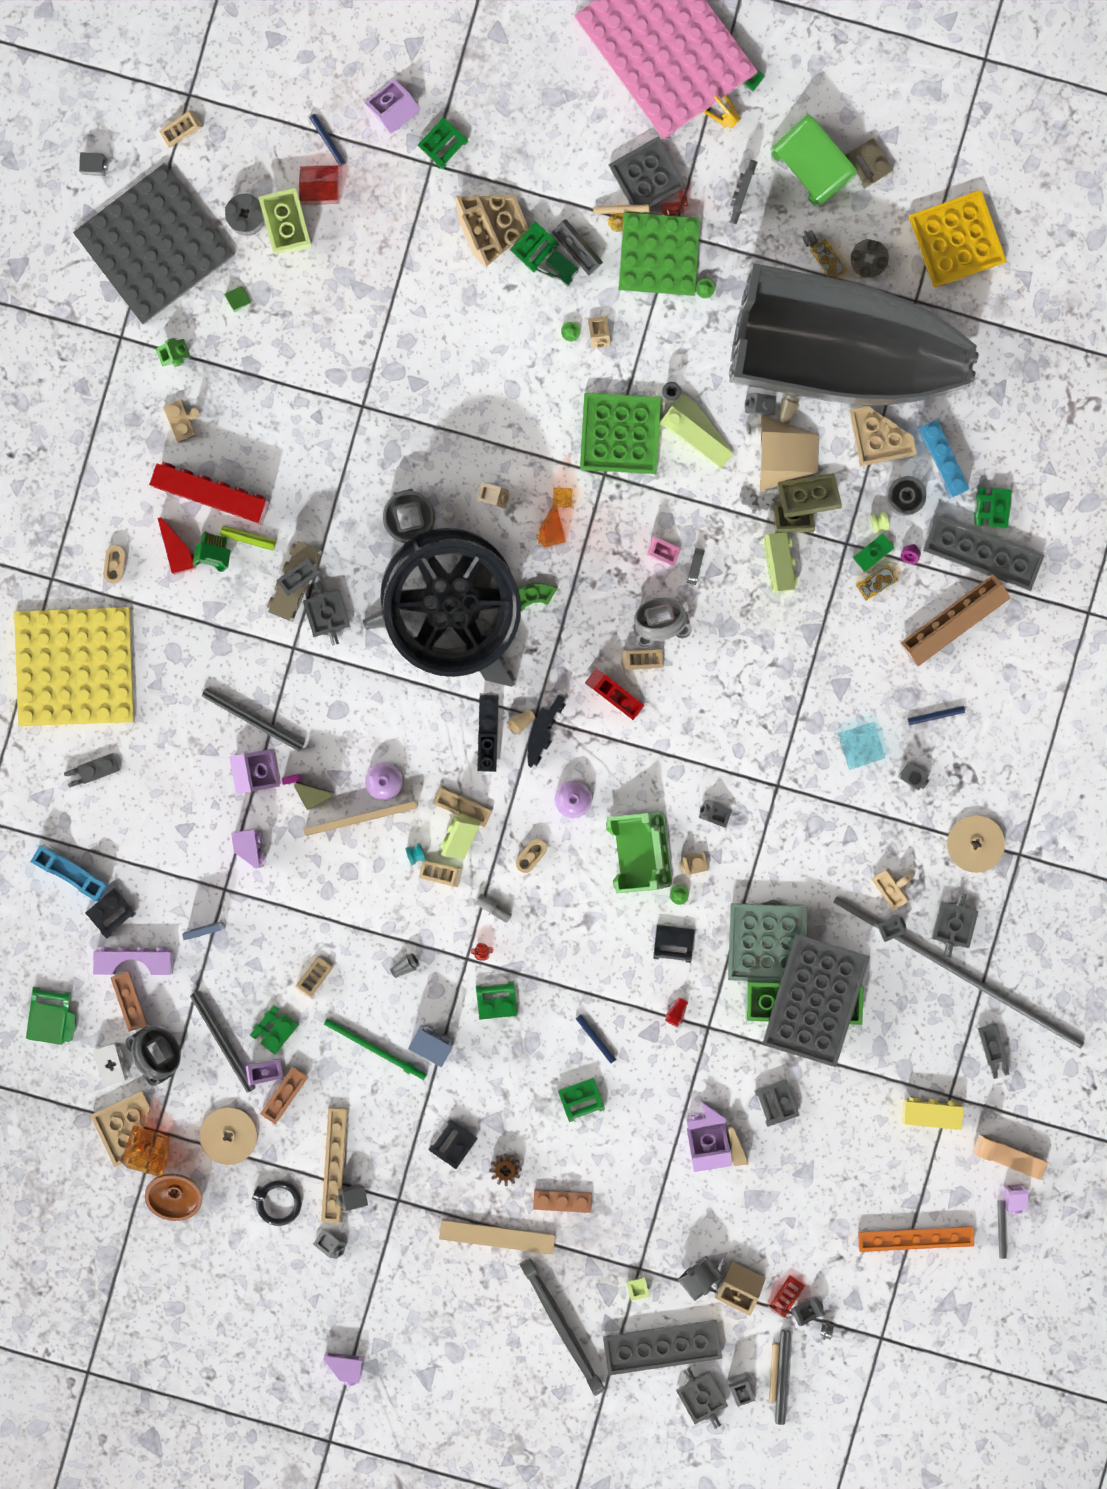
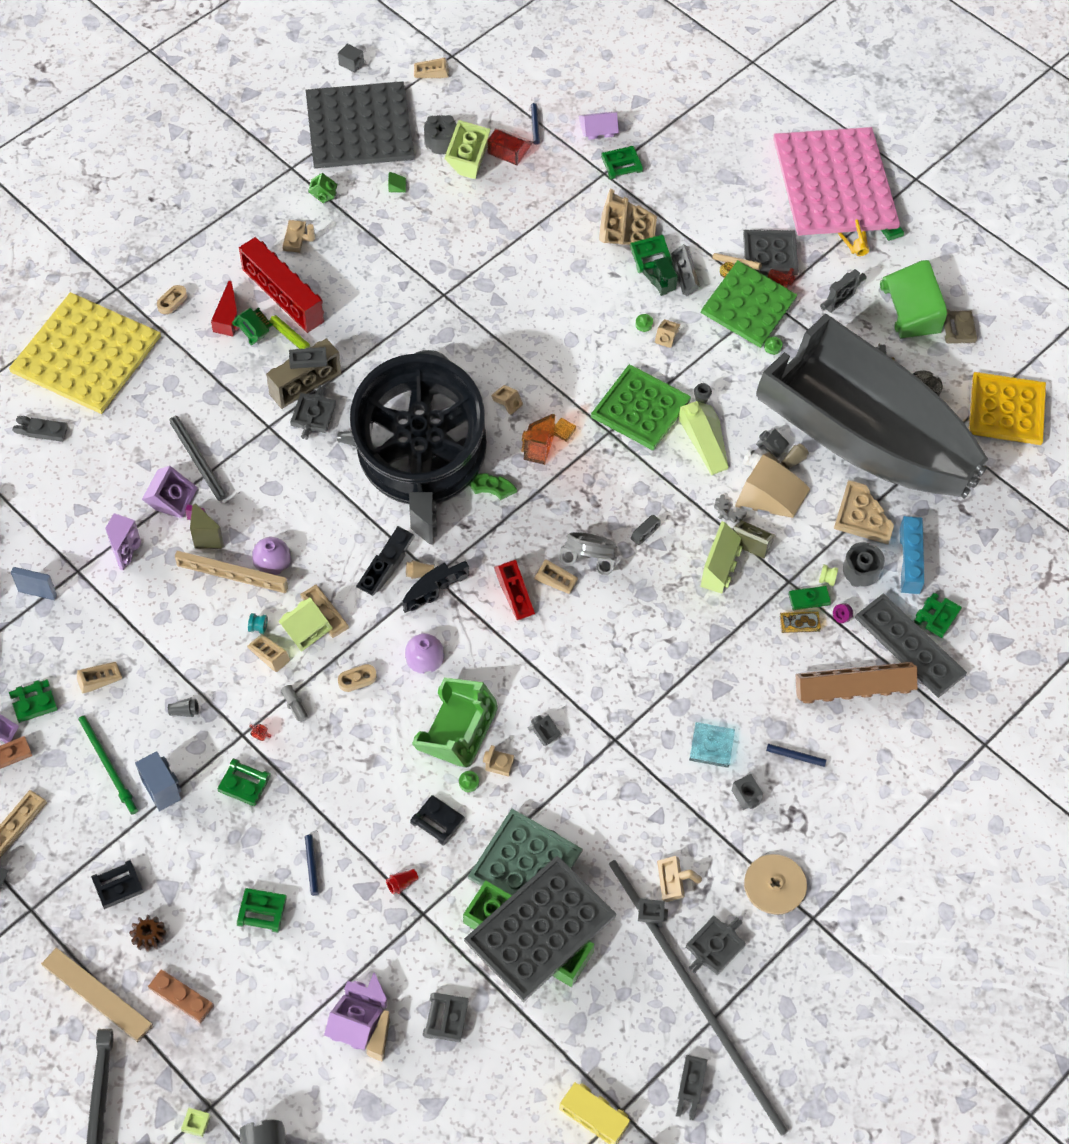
camera: 25 degrees right, 30 degrees down
(663, 551) = (623, 503): bright pink slope -> none
(809, 495) = (777, 523): olive plate -> none

